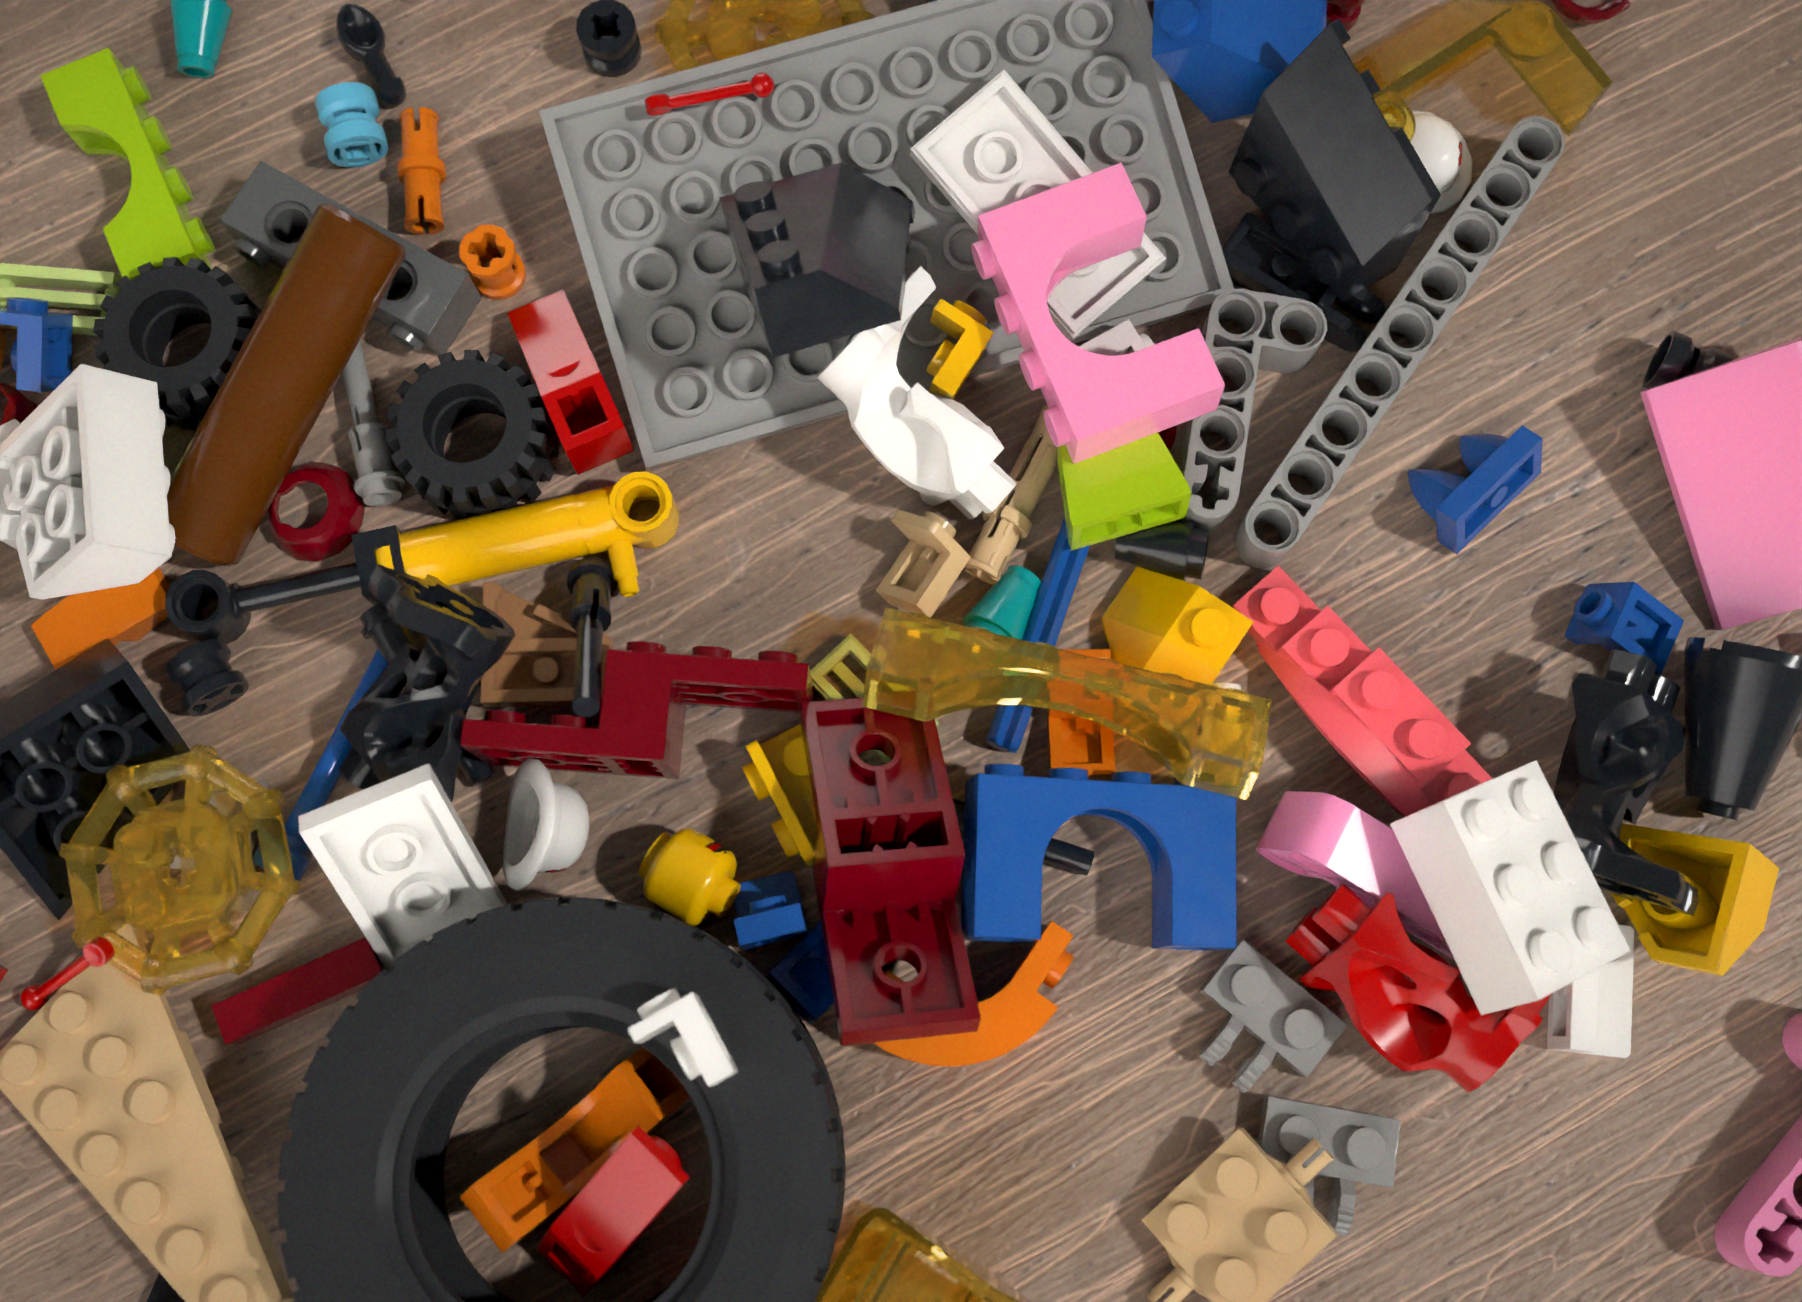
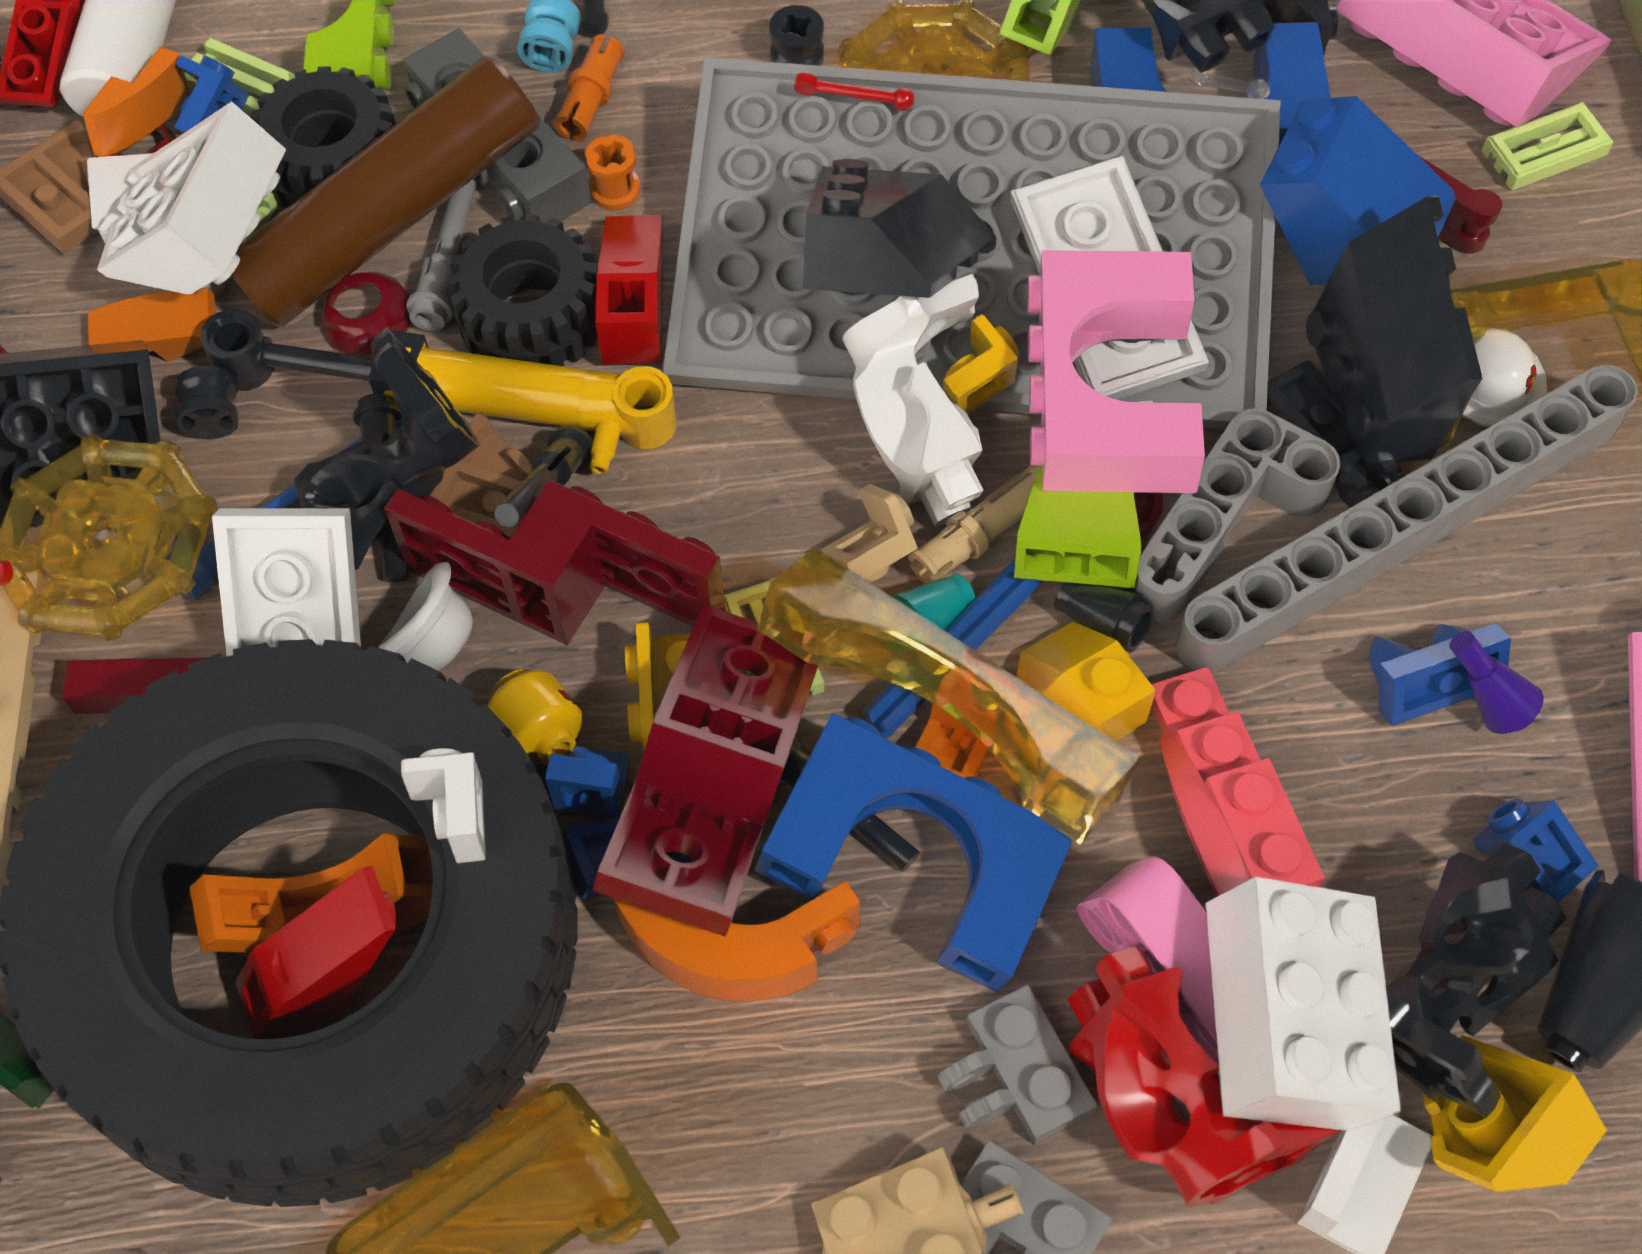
camera: 25 degrees right, 15 degrees down
(1548, 491) = (1502, 695): none -> dark purple cone

